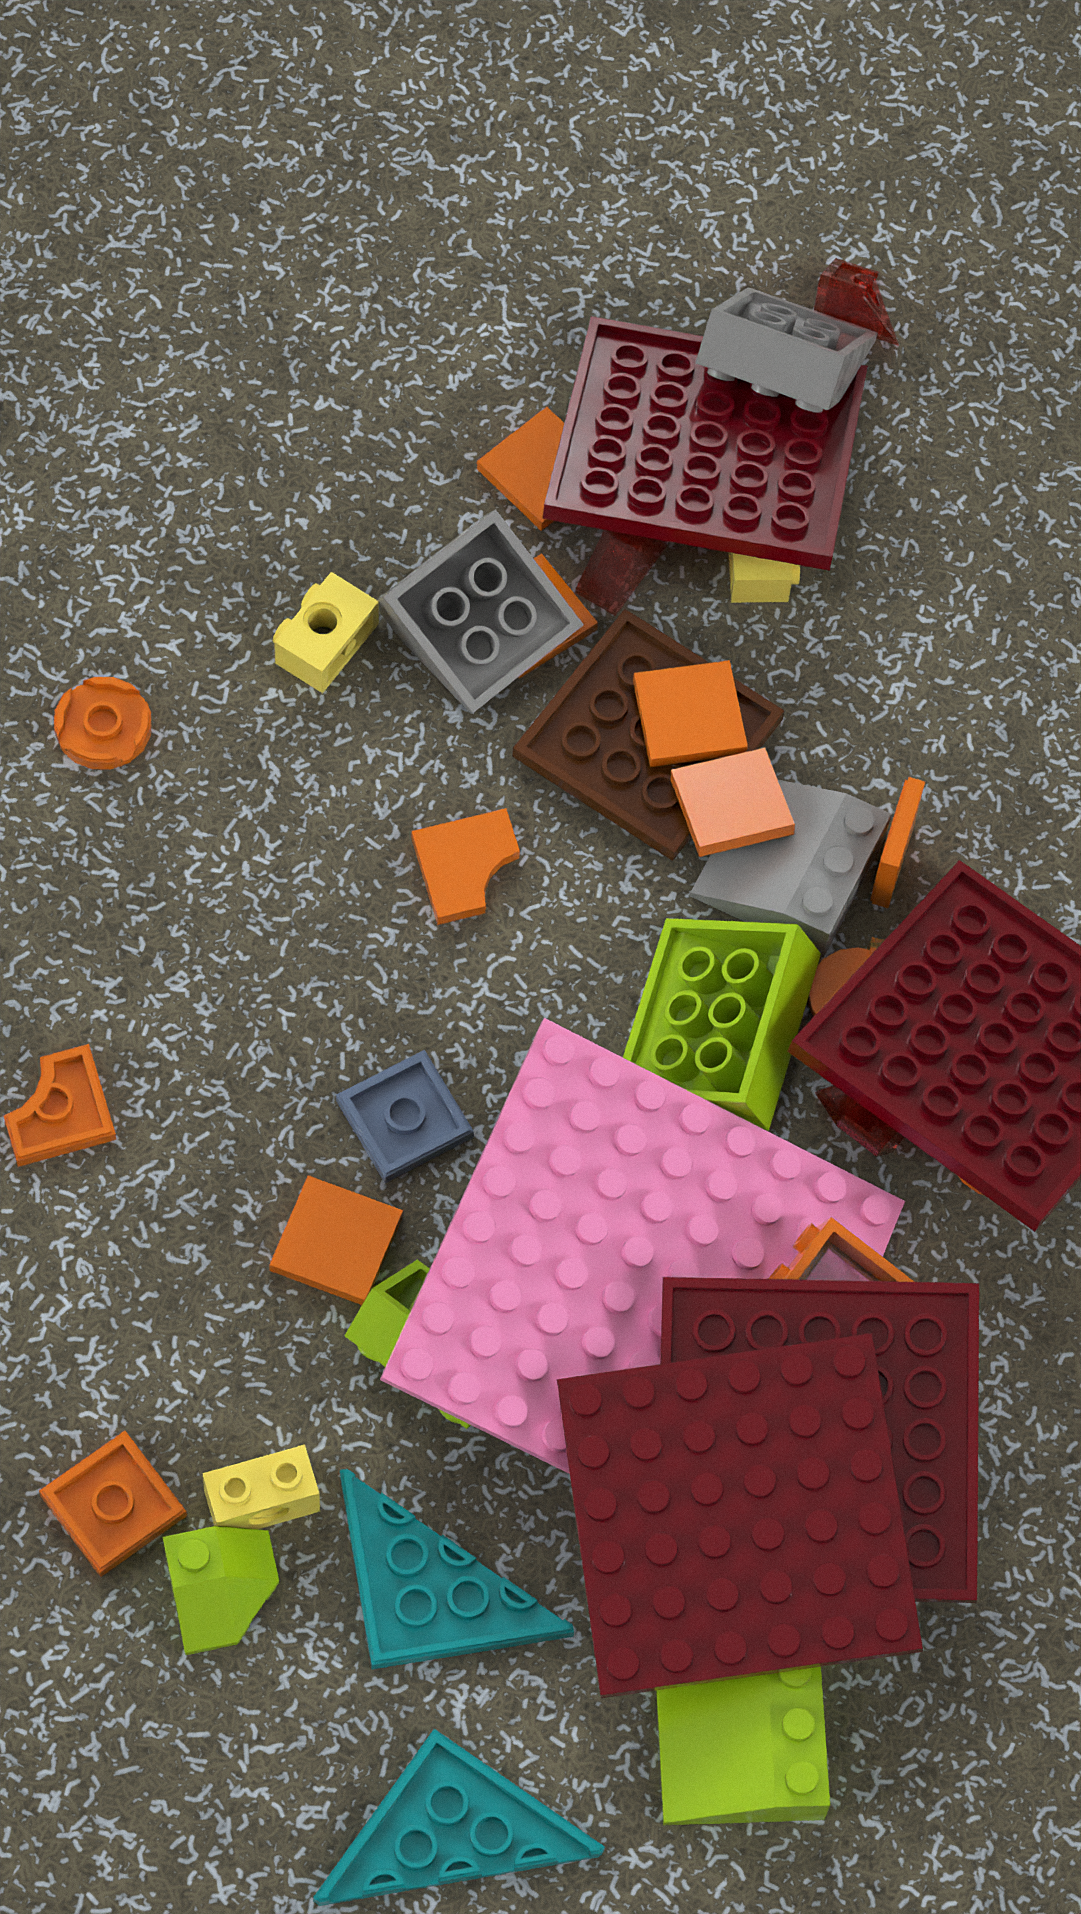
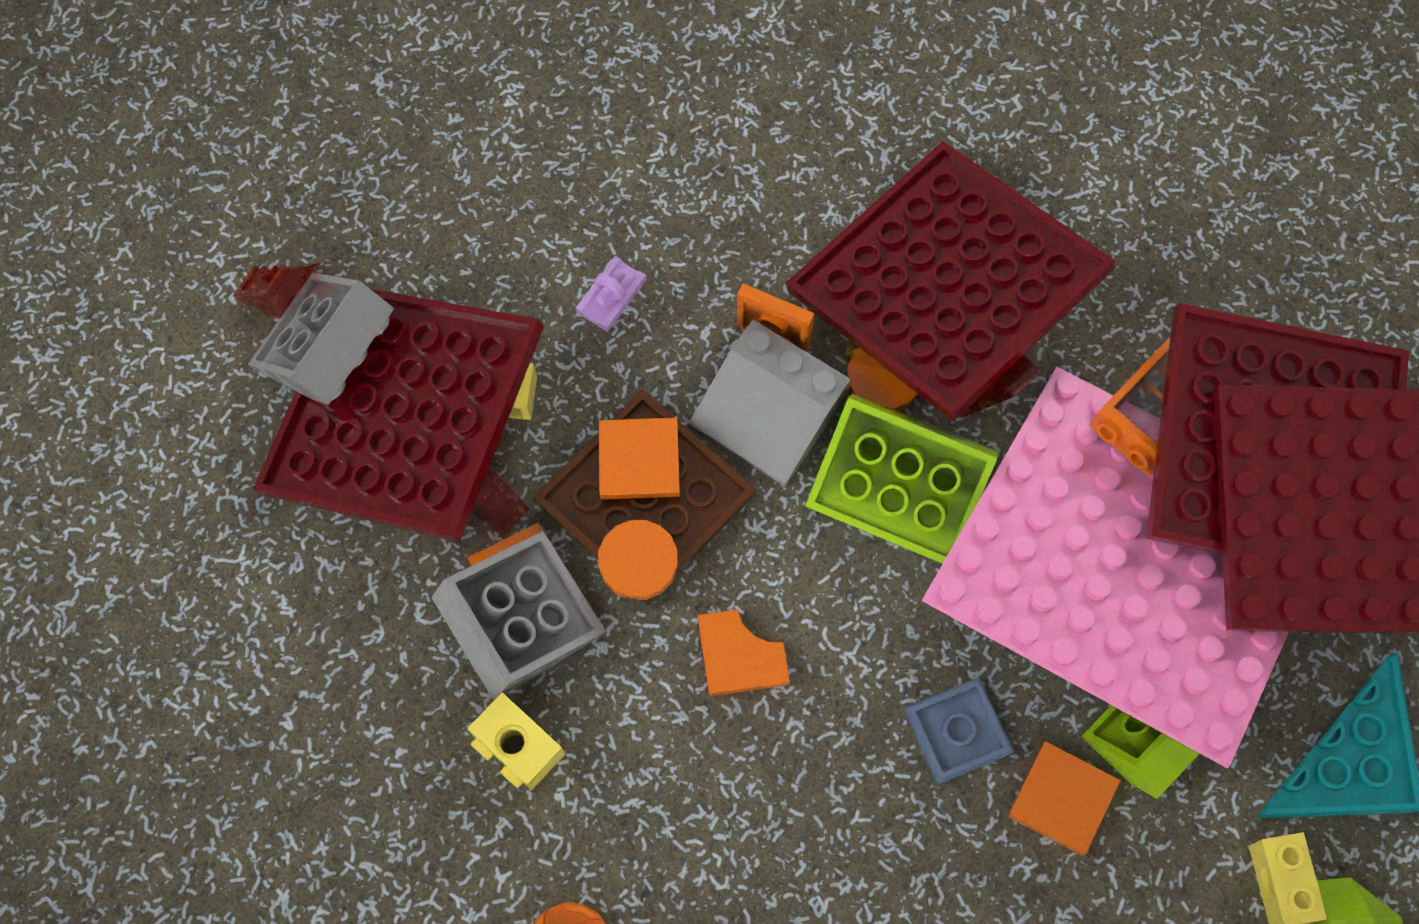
camera: 75 degrees left, 5 degrees up
(524, 464) = (384, 554): orange tile -> none
(561, 727) = (638, 559): none -> orange tile
(732, 802) = (724, 436): tile -> none
(905, 659) = (611, 294): none -> lavender hips

